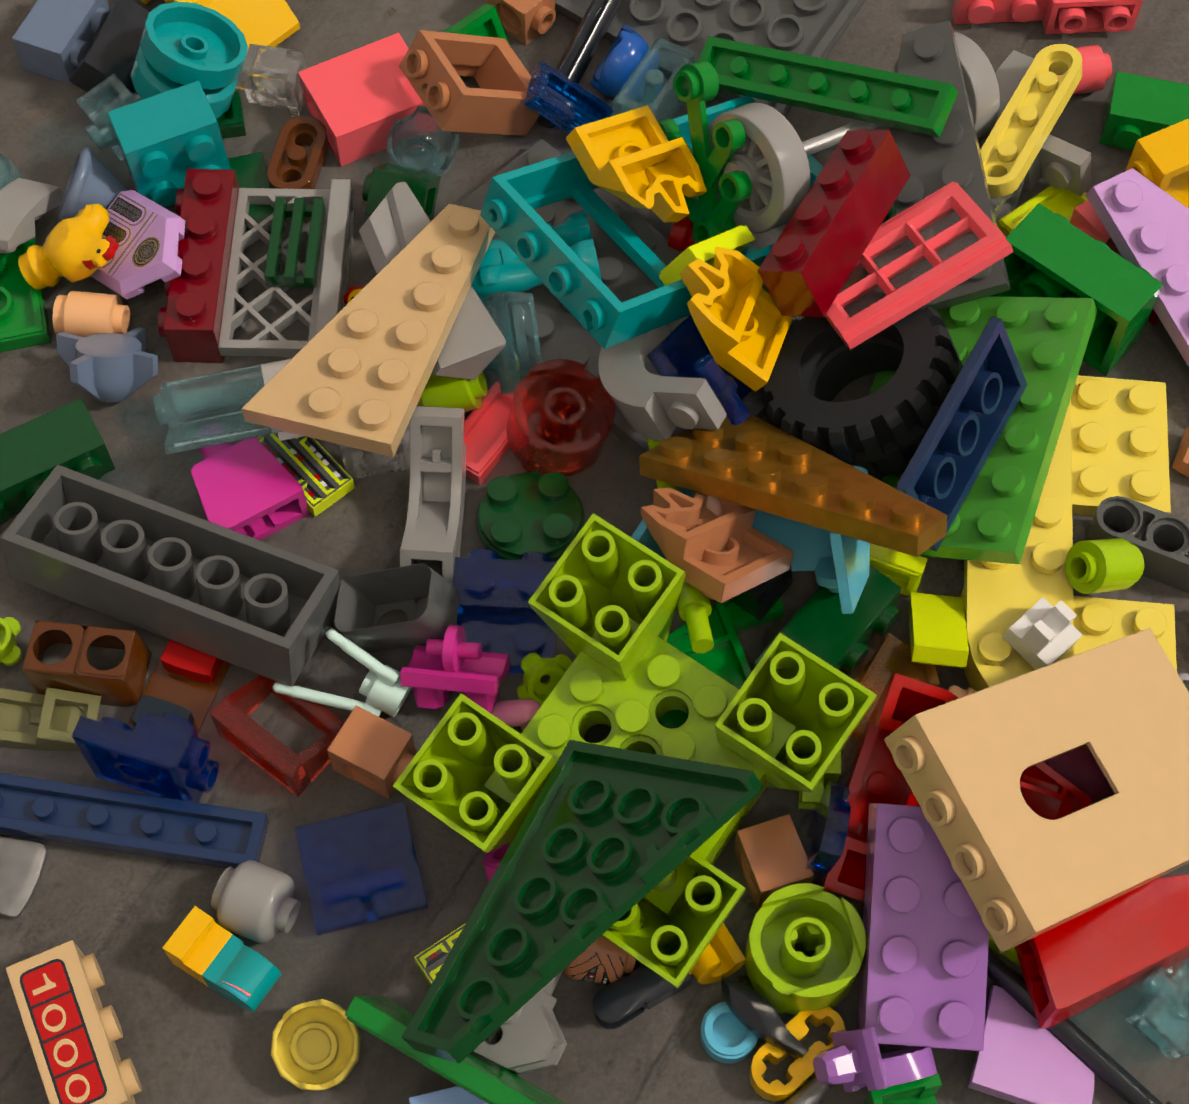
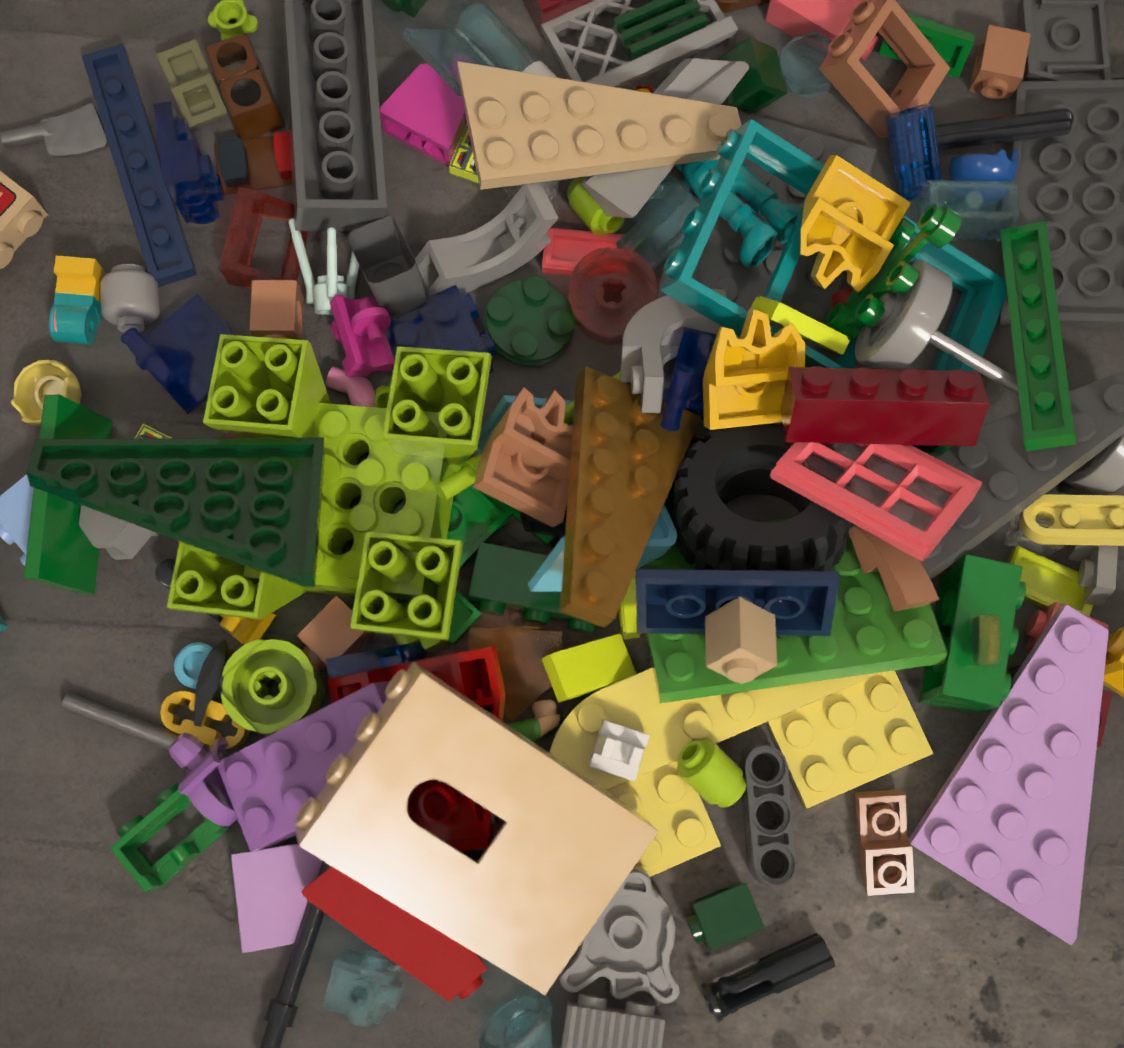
camera: 60 degrees right, 15 degrees up
(1005, 297) = (902, 574): none -> nougat slope
(1005, 446) = (740, 641): none -> tan brick
(1099, 256) = (985, 640): none -> clear yellow tile

